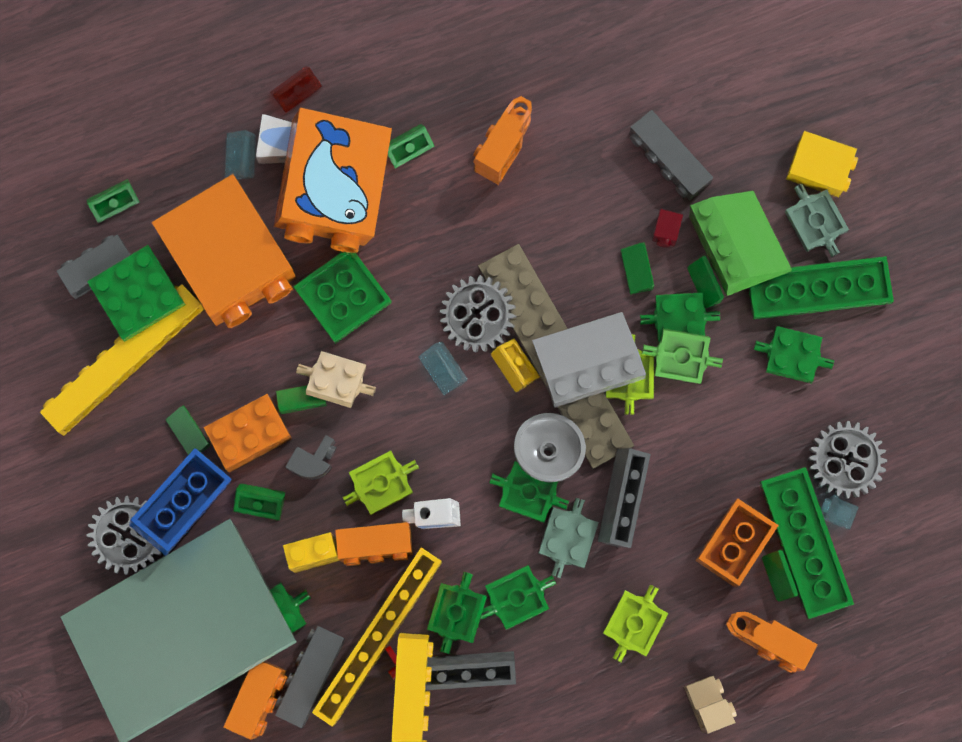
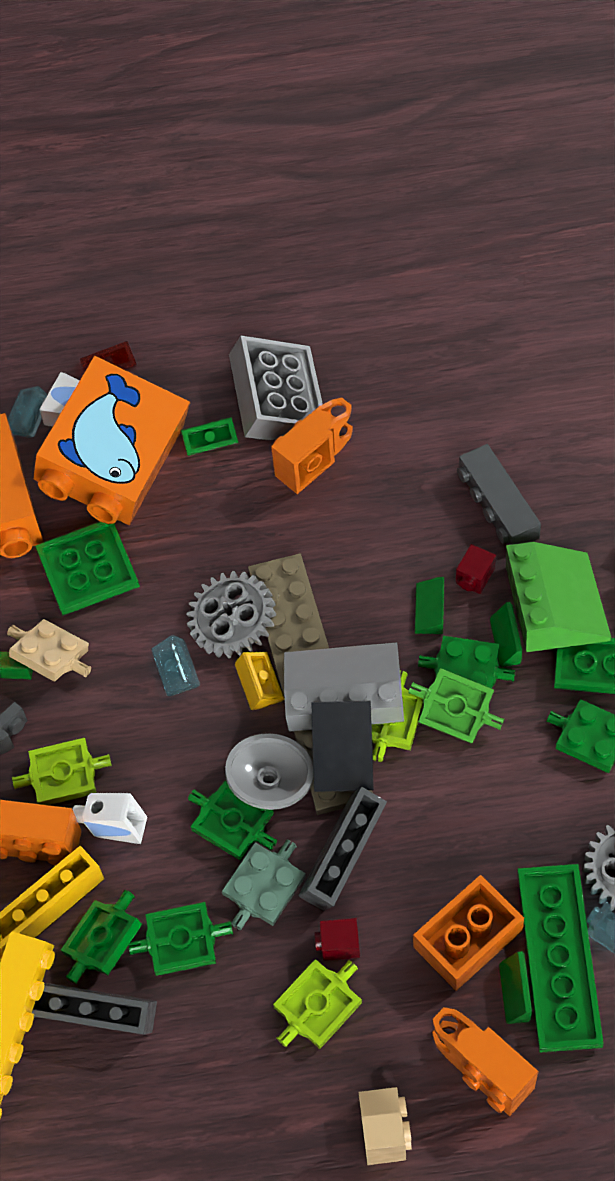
camera: 20 degrees right, 20 degrees down
(454, 88) = (273, 385): none -> light grey slope
(605, 416) = (342, 745): none -> black tile
(638, 570) = (338, 939): none -> dark red brick

